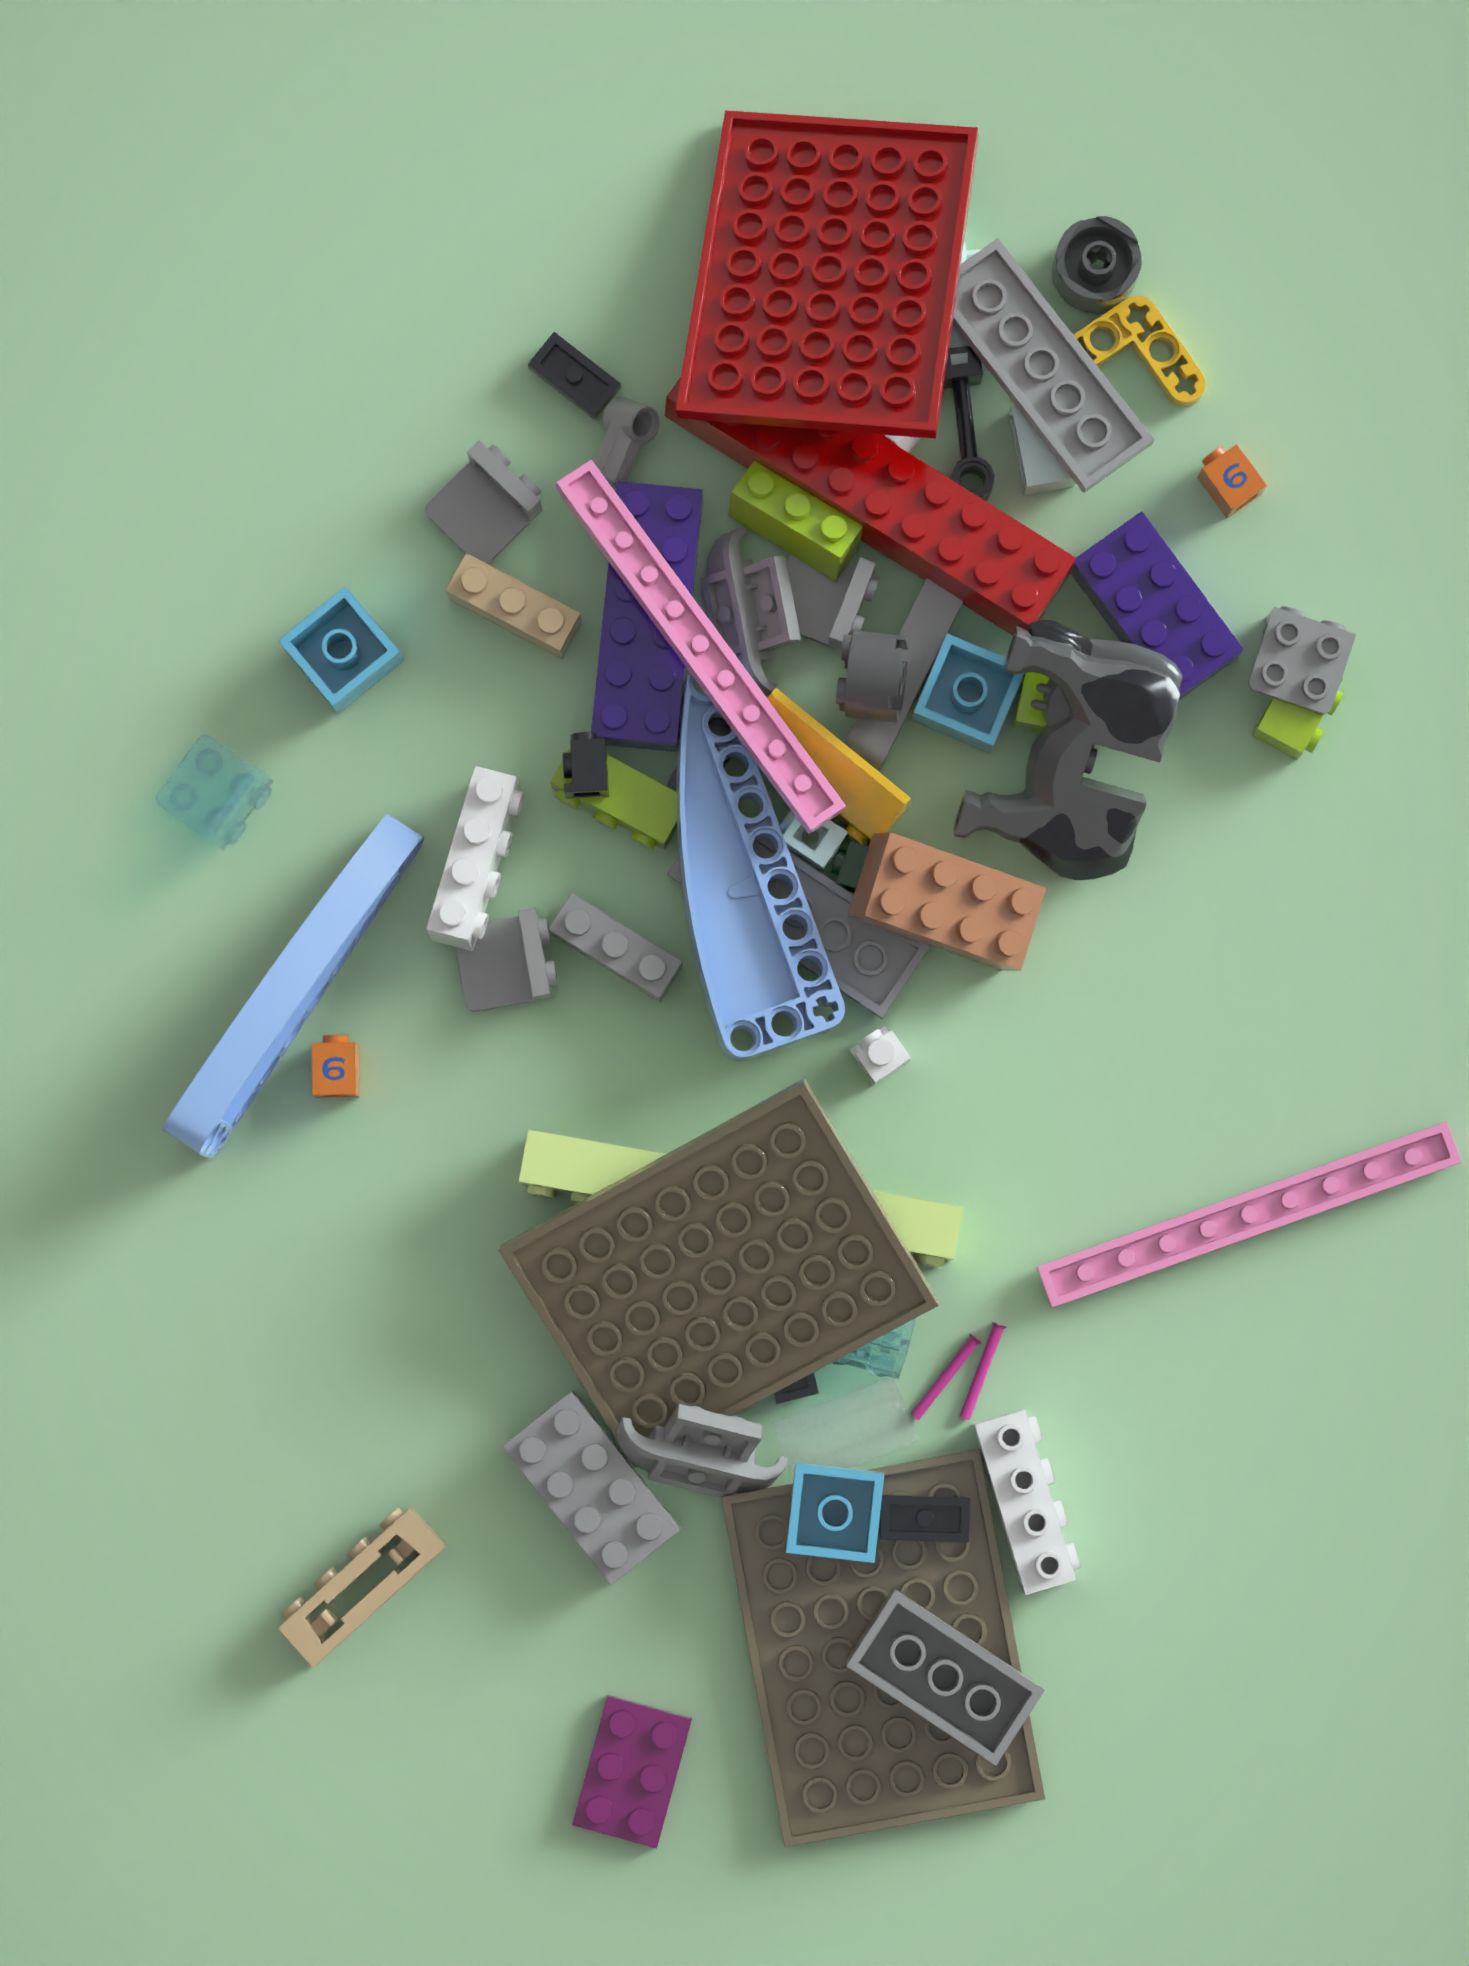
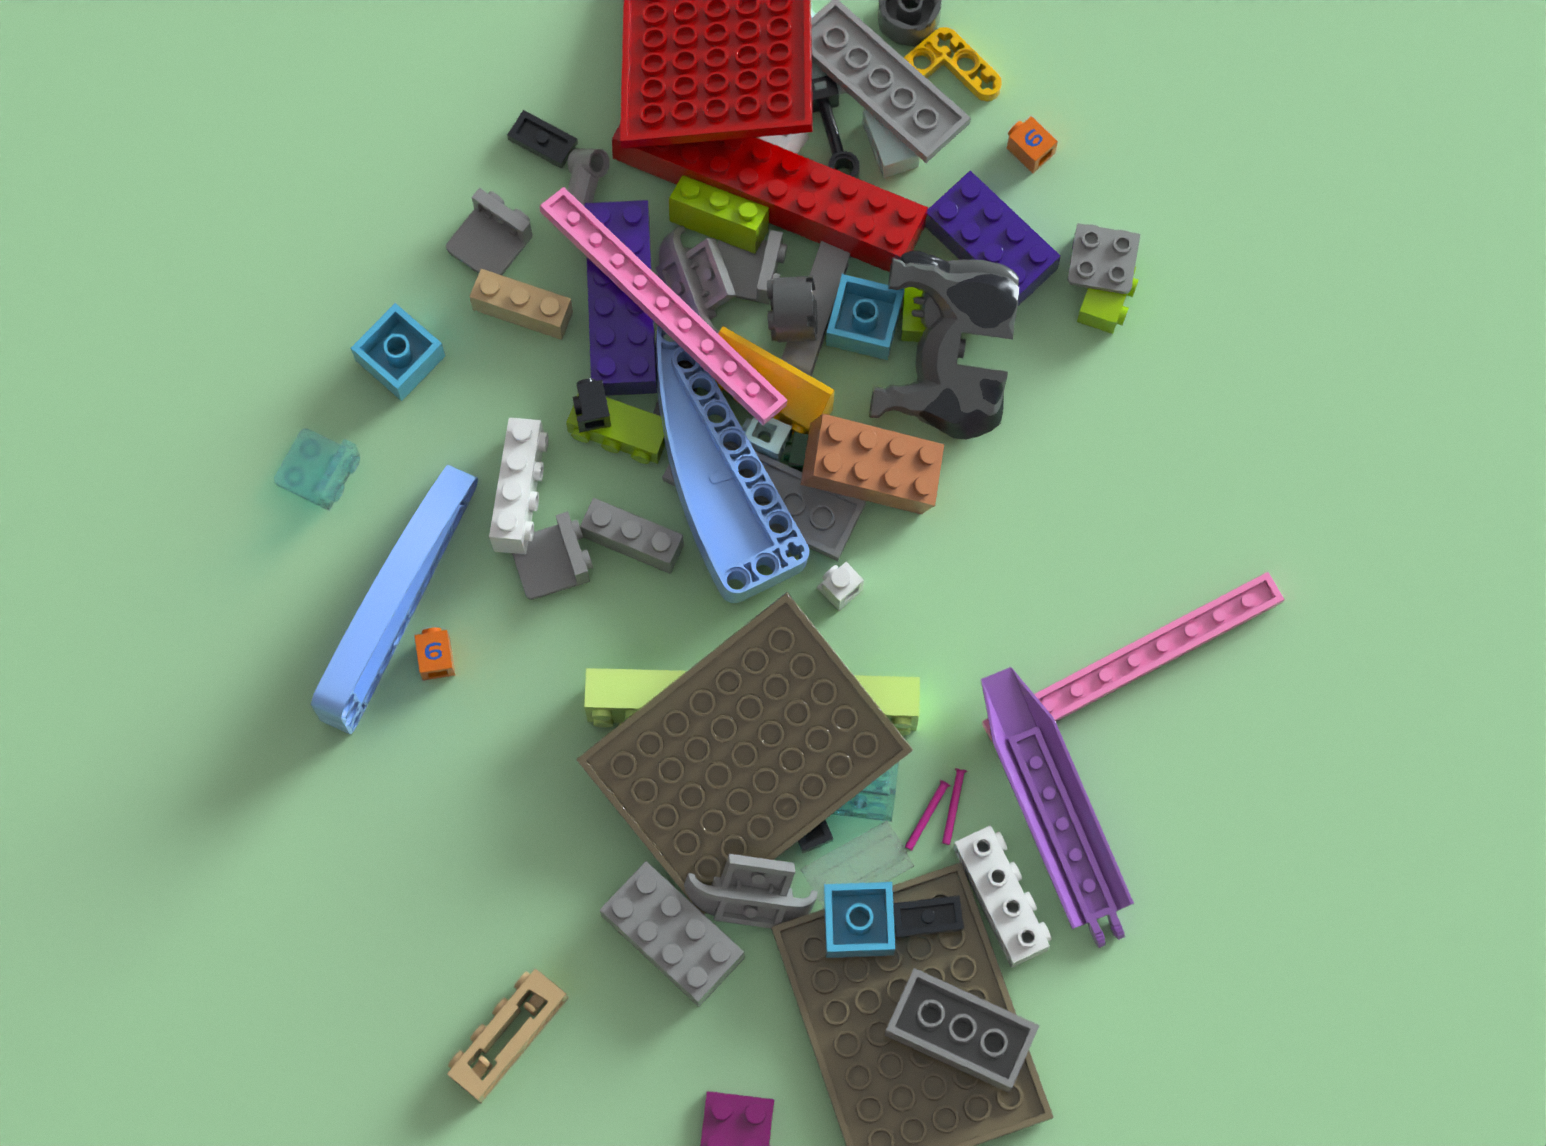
camera: 10 degrees left, 10 degrees down
(1112, 1392) = (1055, 805): none -> medium lavender hinge

